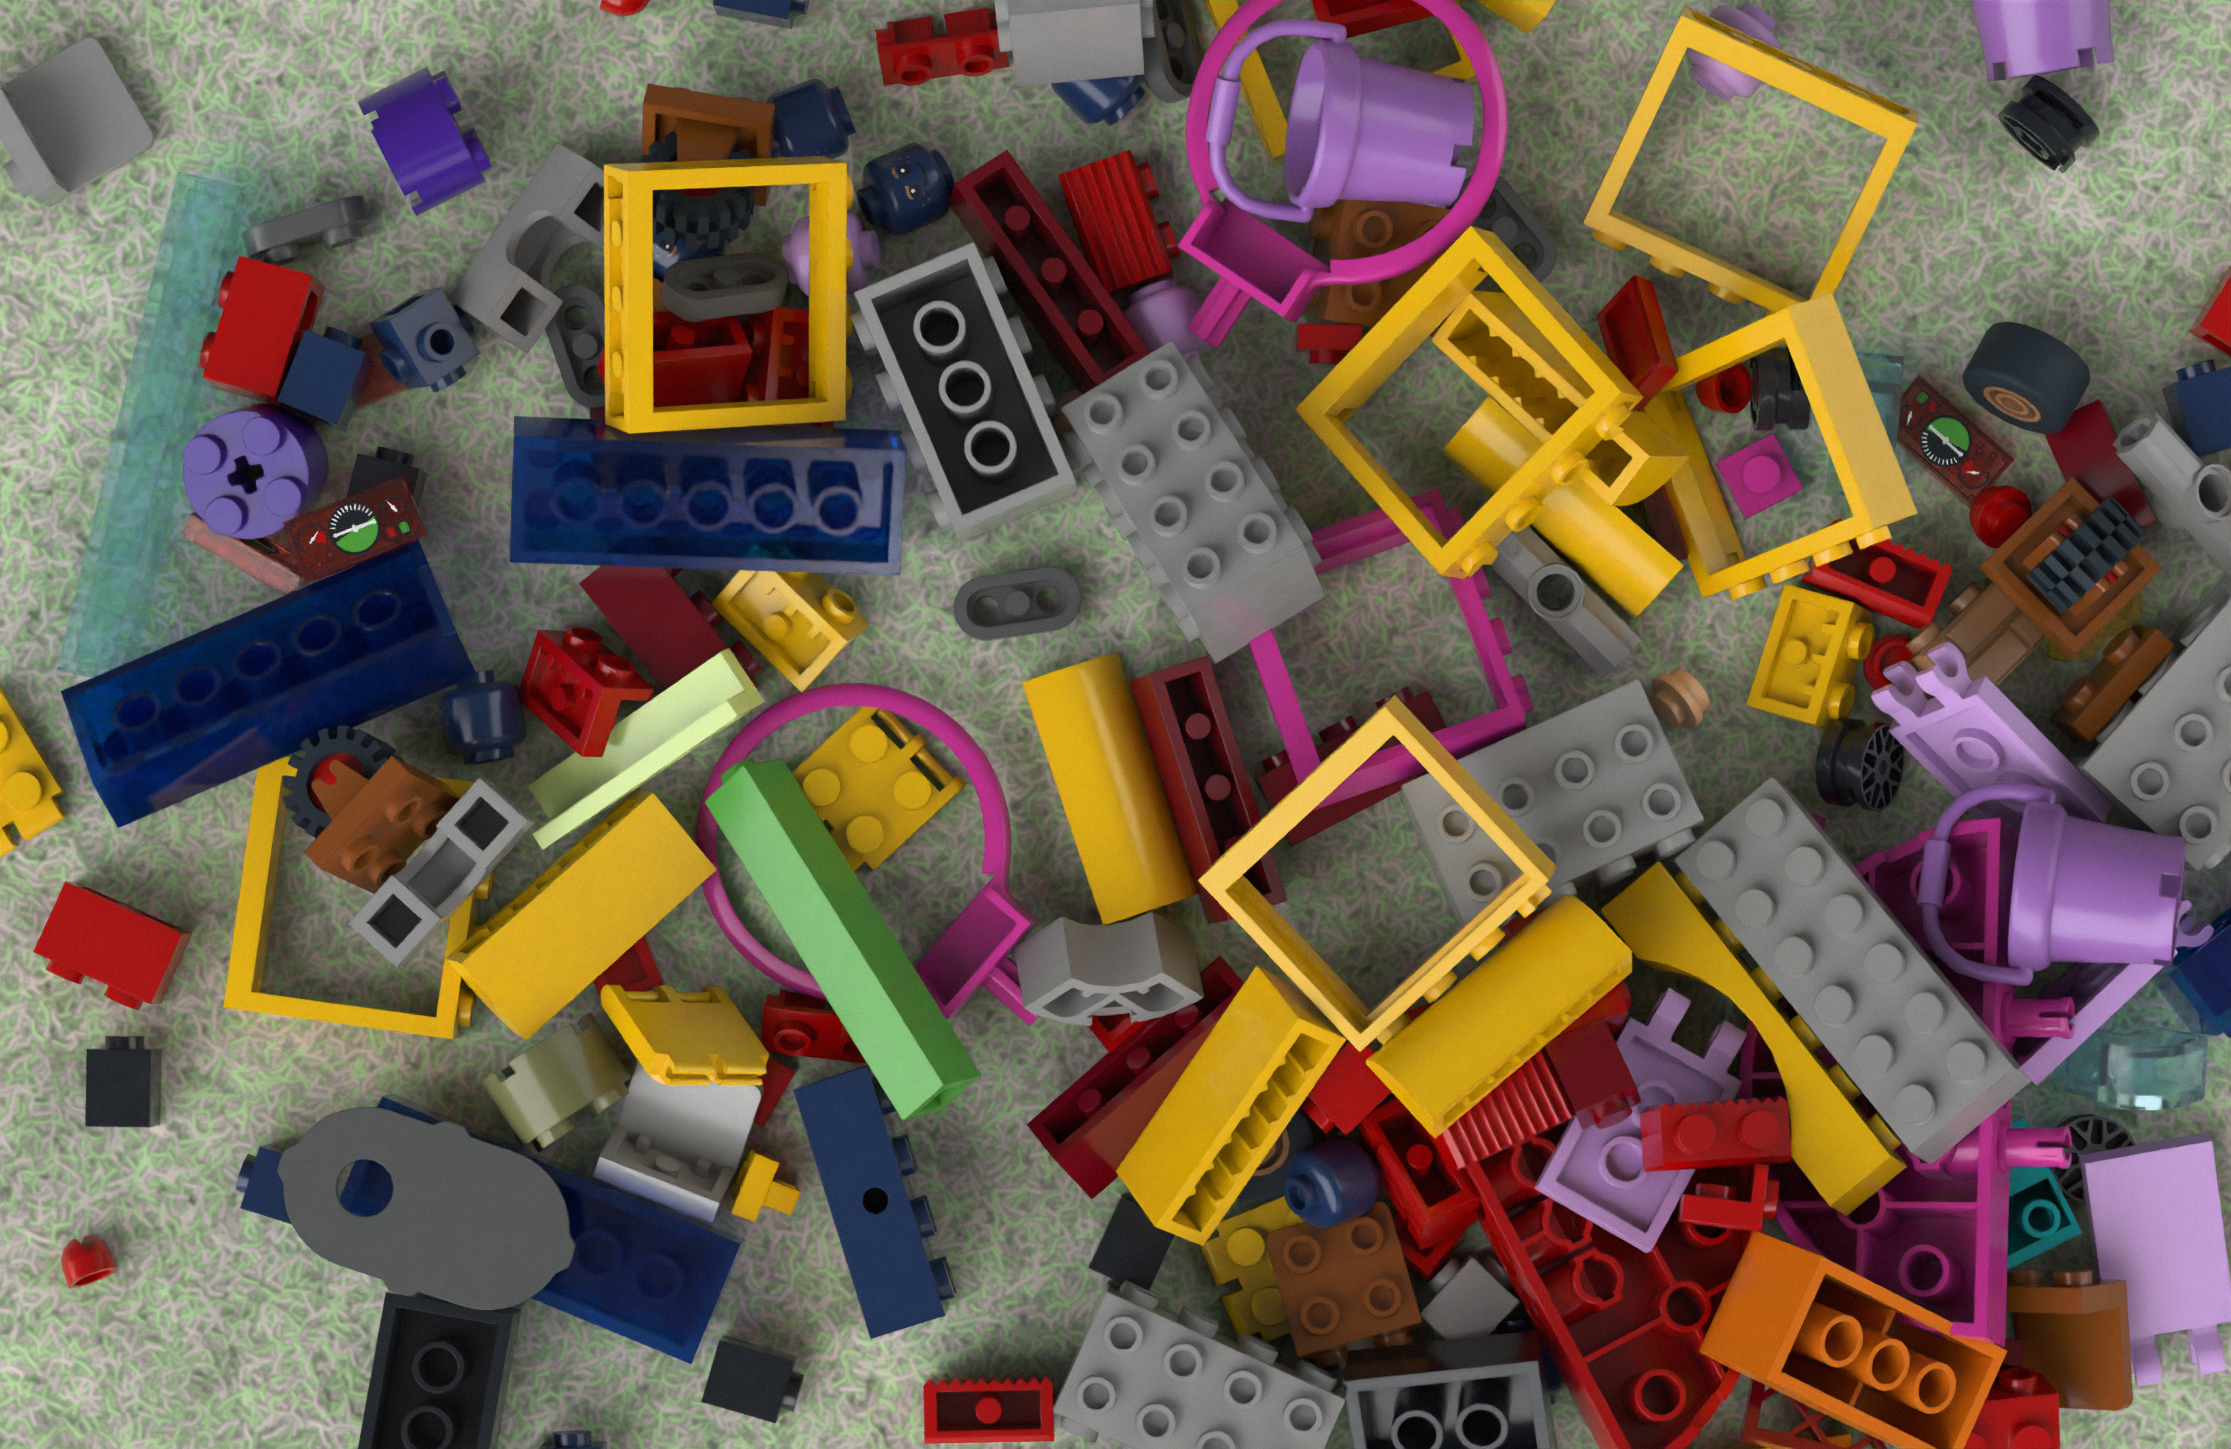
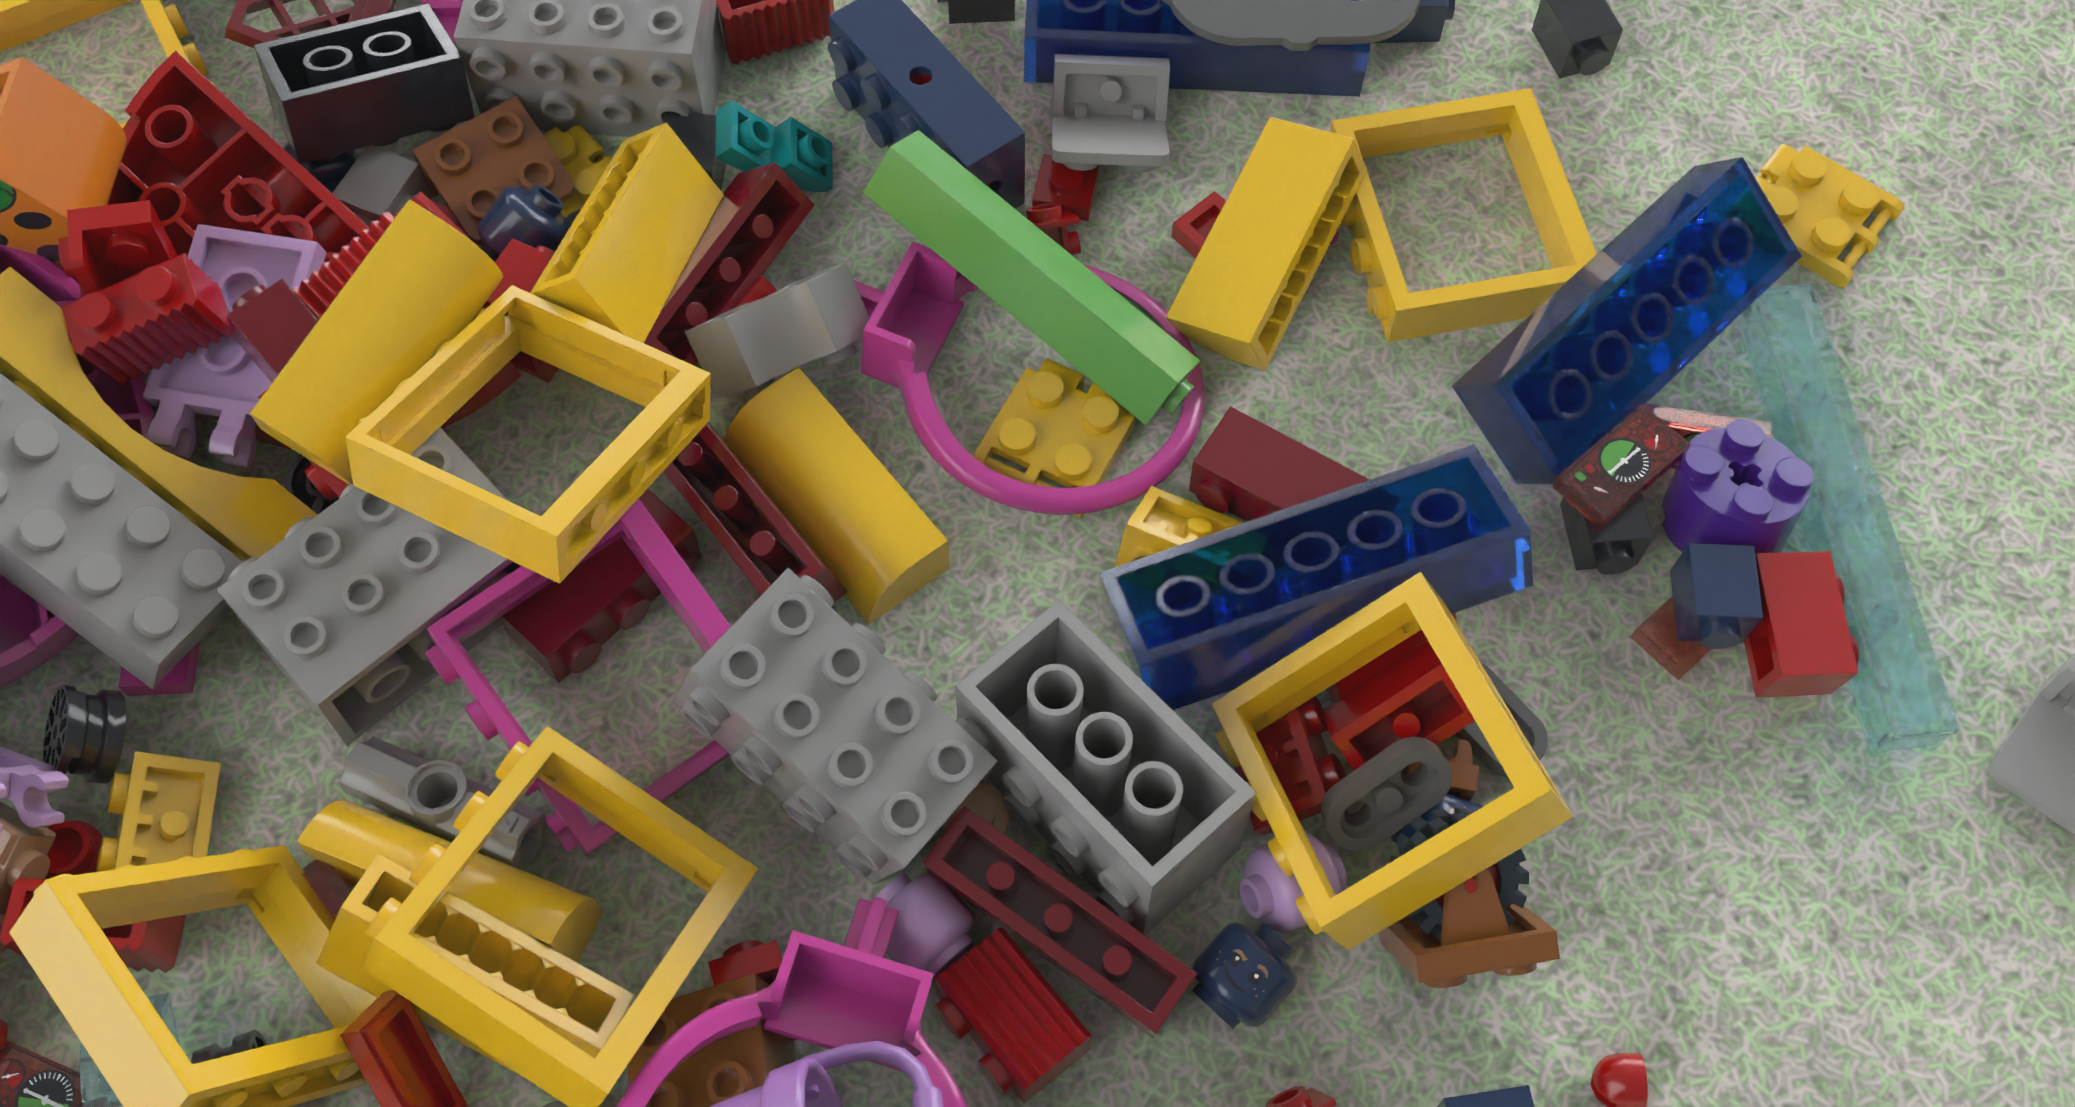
camera: 155 degrees right, 25 degrees down
(112, 945) = (1643, 121): red brick -> none
(332, 222) = (1820, 715): dark grey plate -> none
(362, 805) = (1500, 236): dark orange plate -> none
(424, 139) = (1746, 843): dark purple brick -> none
(425, 341) = (1643, 662): dark blue brick -> none
(443, 874) = (1404, 208): light grey arch -> none
(482, 719) = (1421, 376): dark blue head -> none
(511, 275) = (1592, 744): light grey arch -> none
(557, 1082) = (1225, 112): olive brick -> none
(578, 686) = (1351, 415): red bracket -> none
(644, 745) = (1270, 375): yellowish green fence -> none
(687, 1035) = (1133, 164): yellow plate -> none
(758, 1187) = (1029, 106): yellow tile -> none
(810, 121) = (1372, 1008): dark blue head -> none
(1017, 603) = (976, 624): dark grey plate -> none
(1044, 1221) = (751, 142): none -> teal slope
(1679, 699) = (291, 746): light nougat plate -> none
(1758, 476) = (252, 995): dark pink plate -> none

